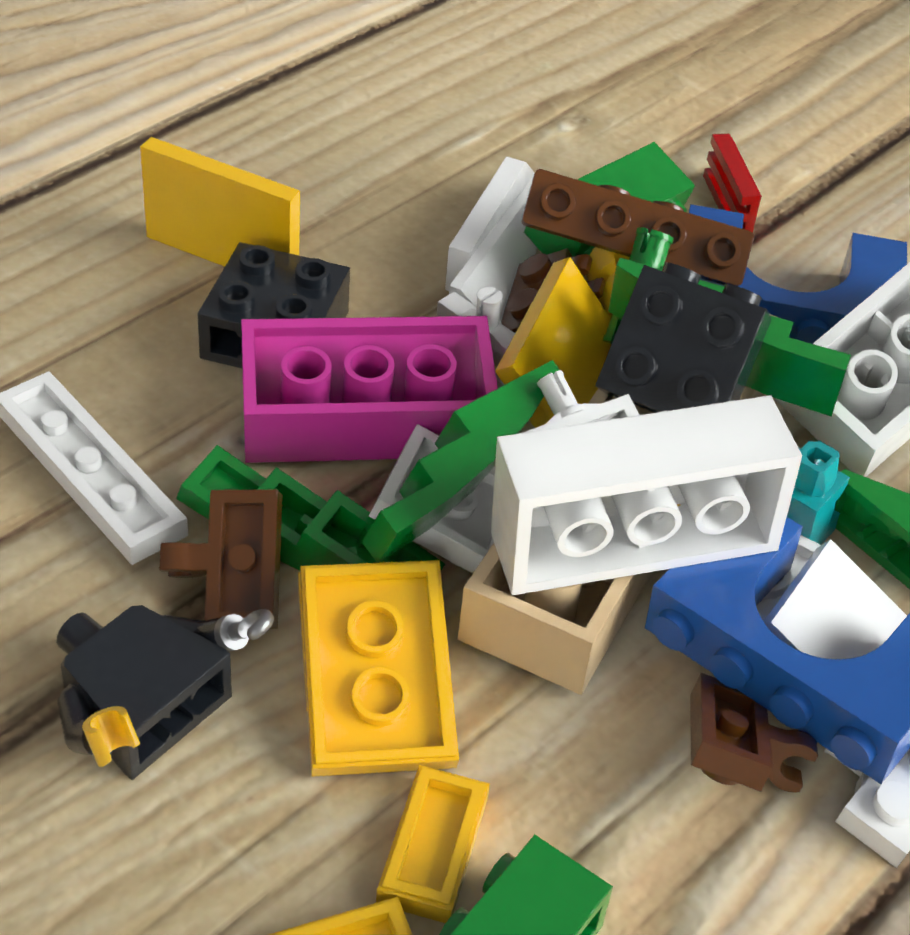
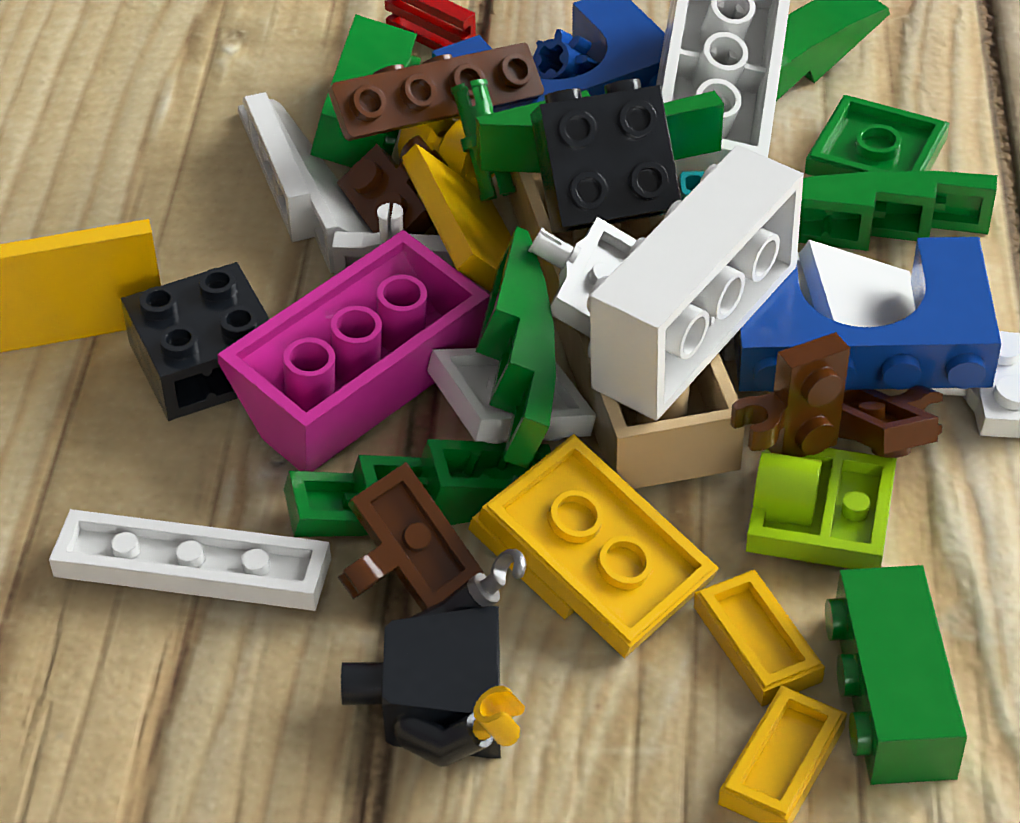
camera: 35 degrees left, 0 degrees up
(607, 772) = (822, 507): none -> lime plate
(647, 664) = (806, 400): none -> reddish brown plate
(800, 270) = (563, 56): none -> blue gear

